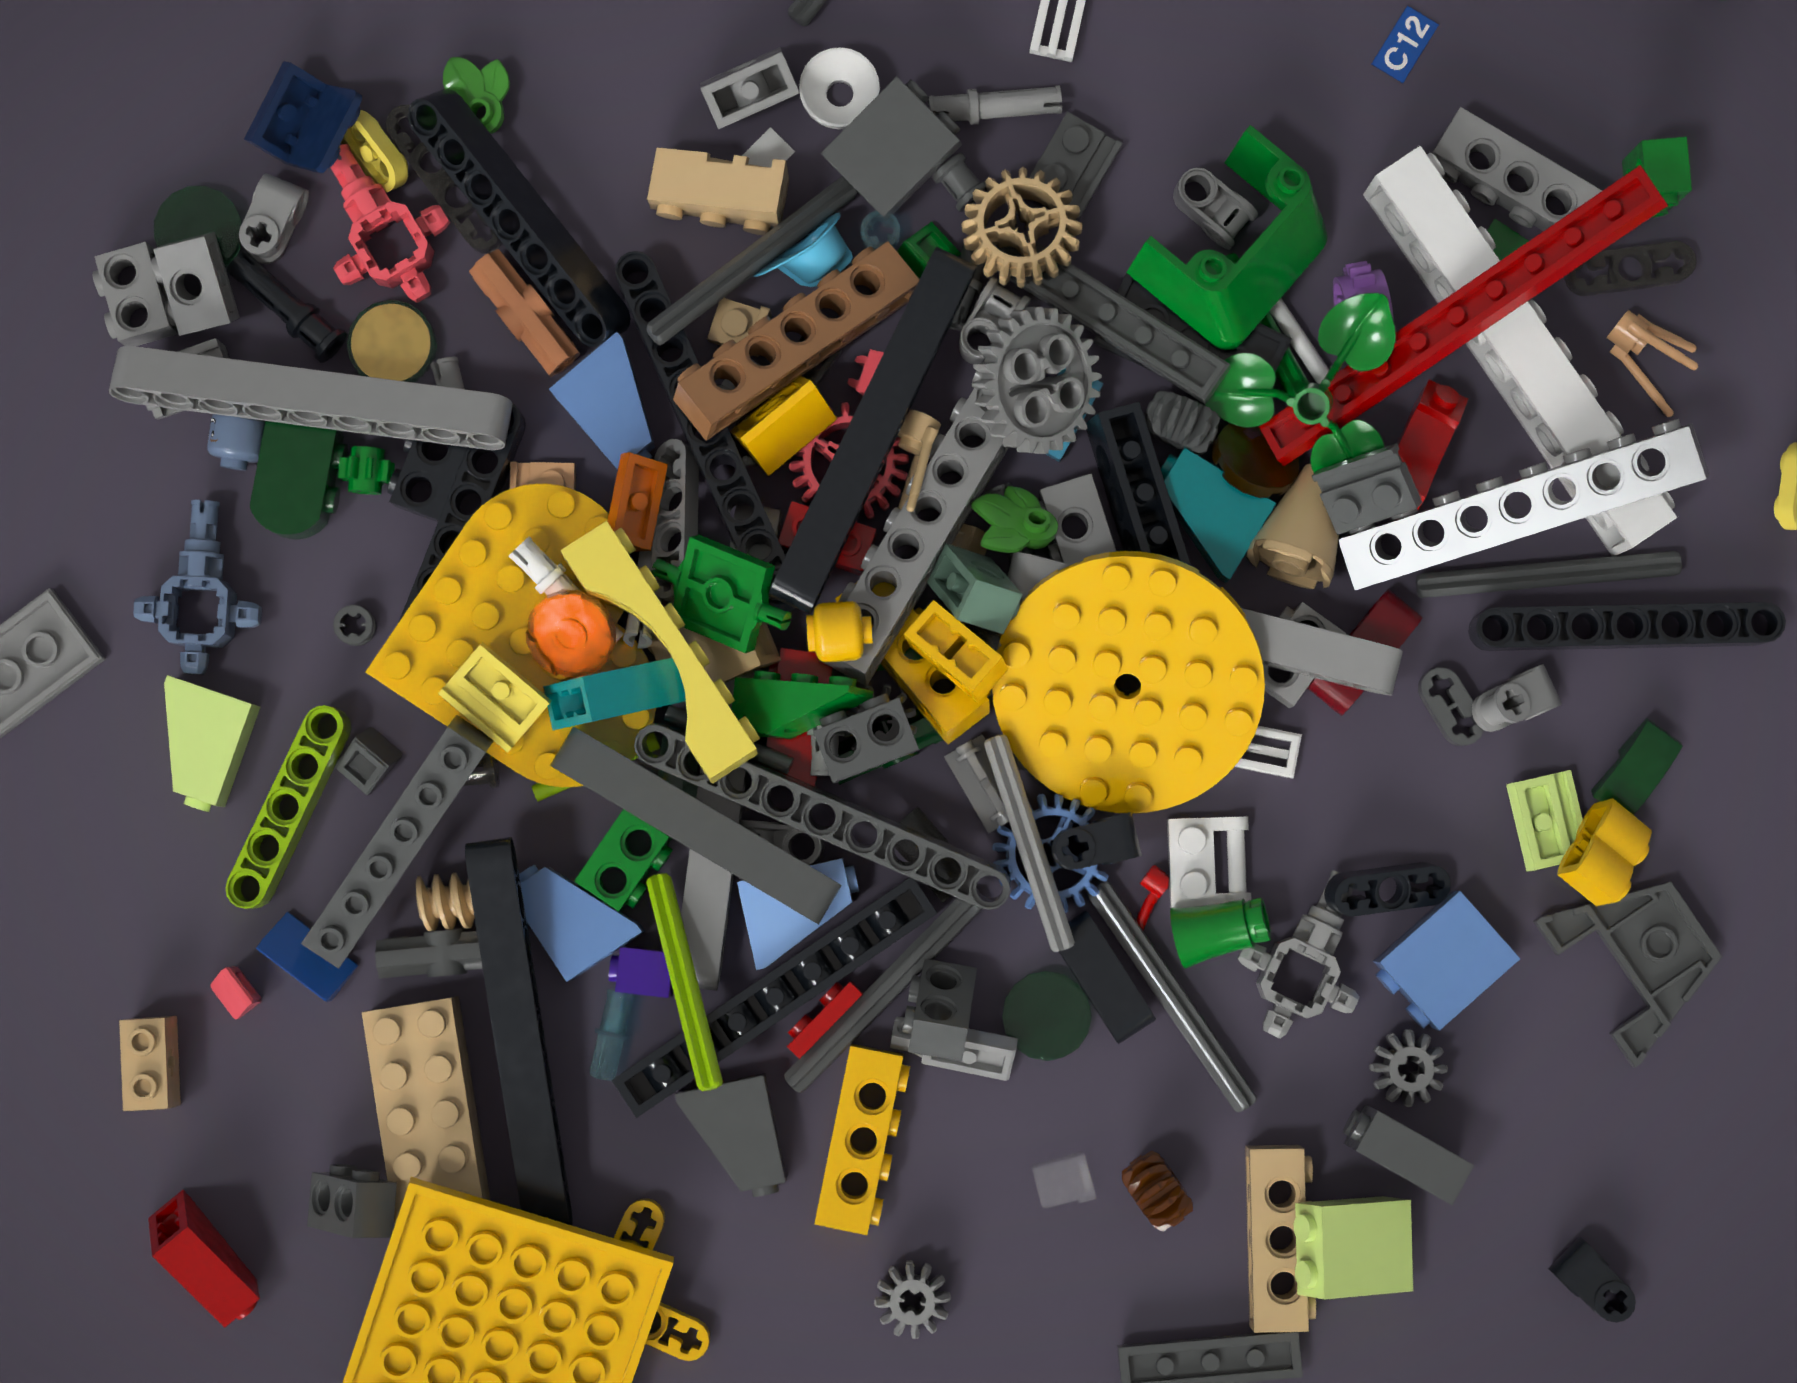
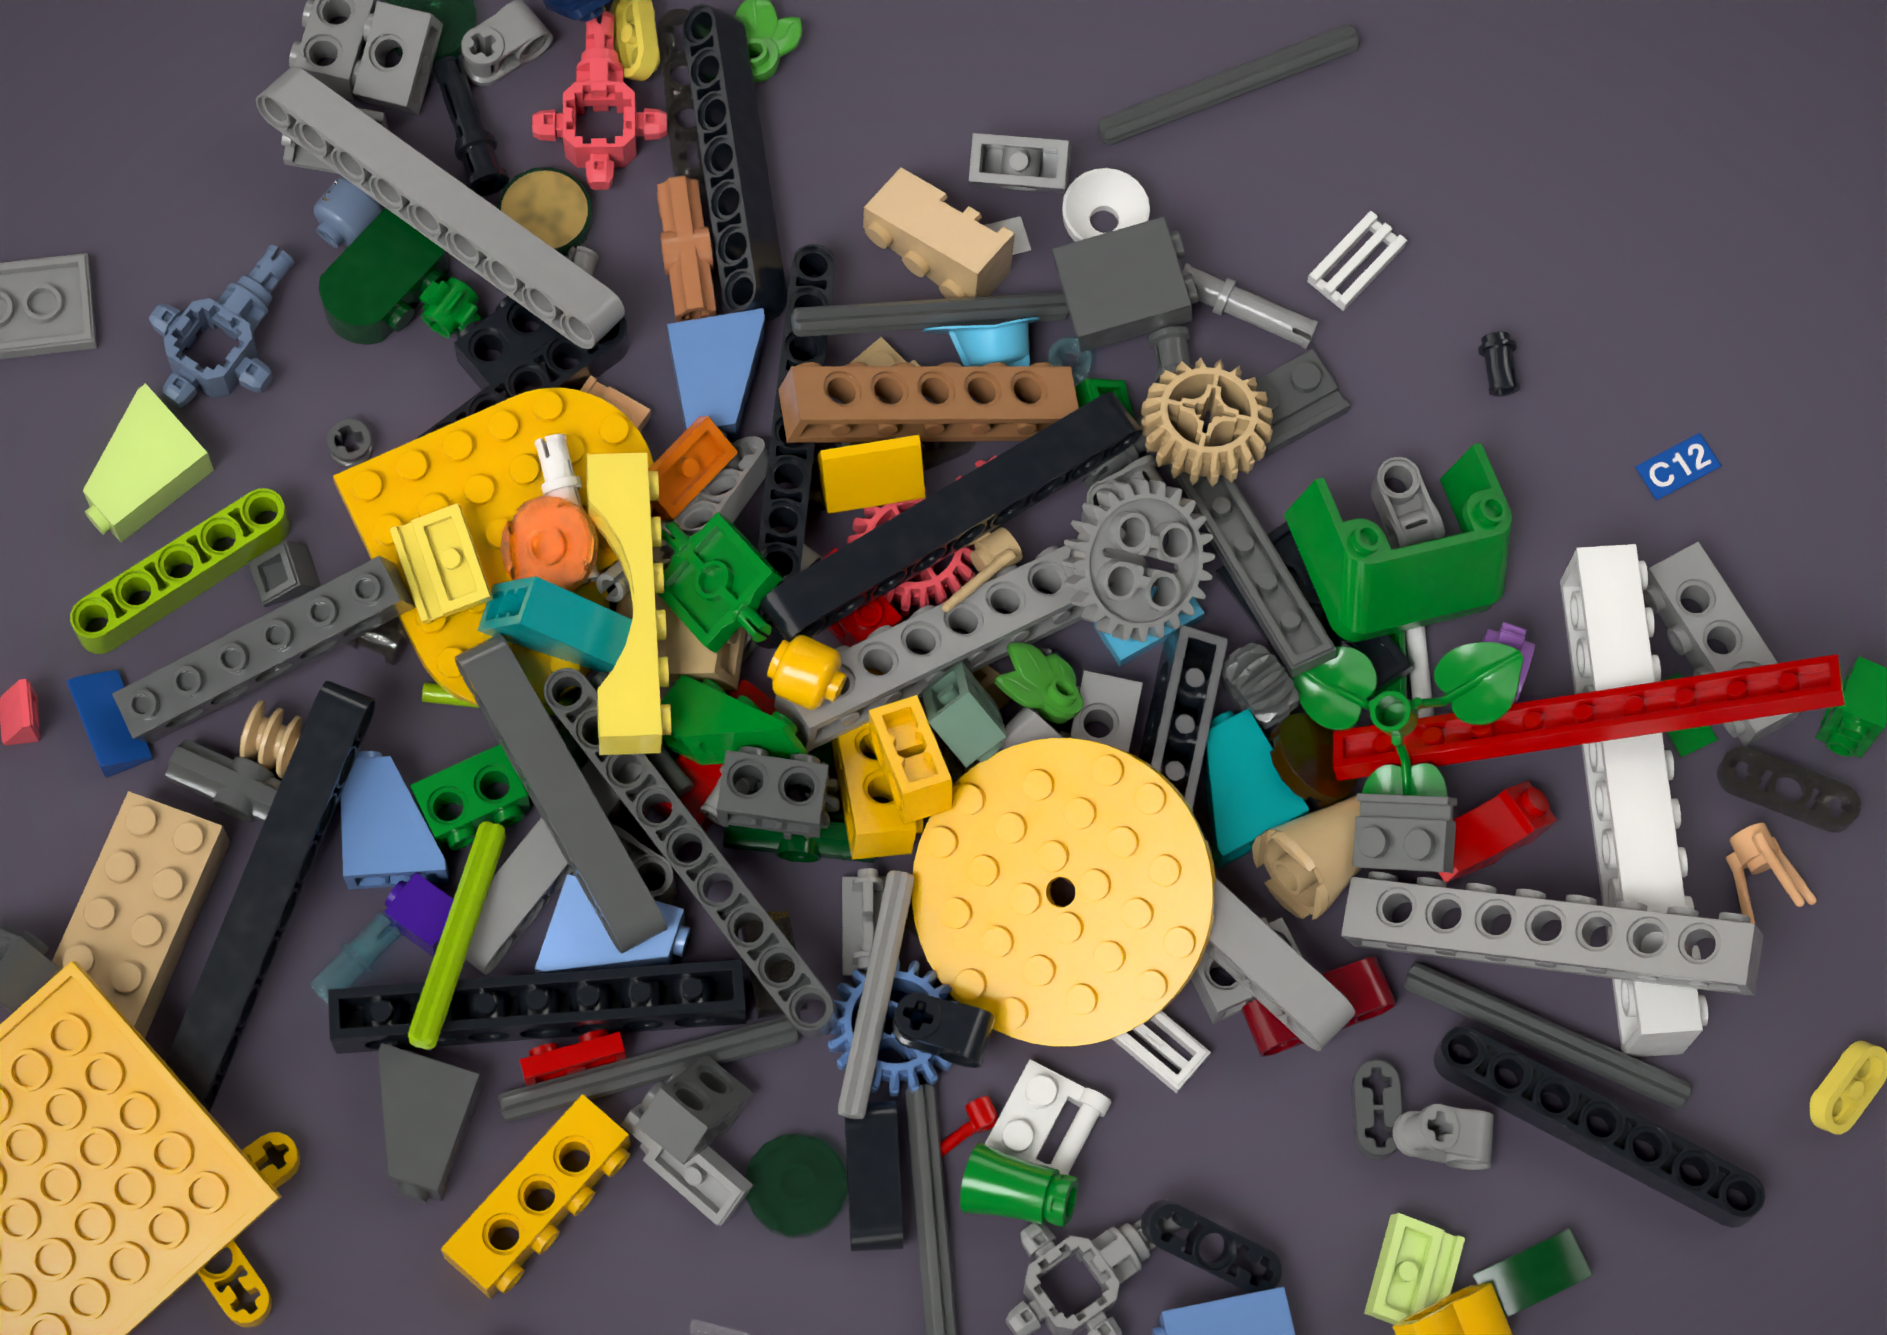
camera: 20 degrees right, 15 degrees down
(1221, 38) = (1499, 361): none -> black pin

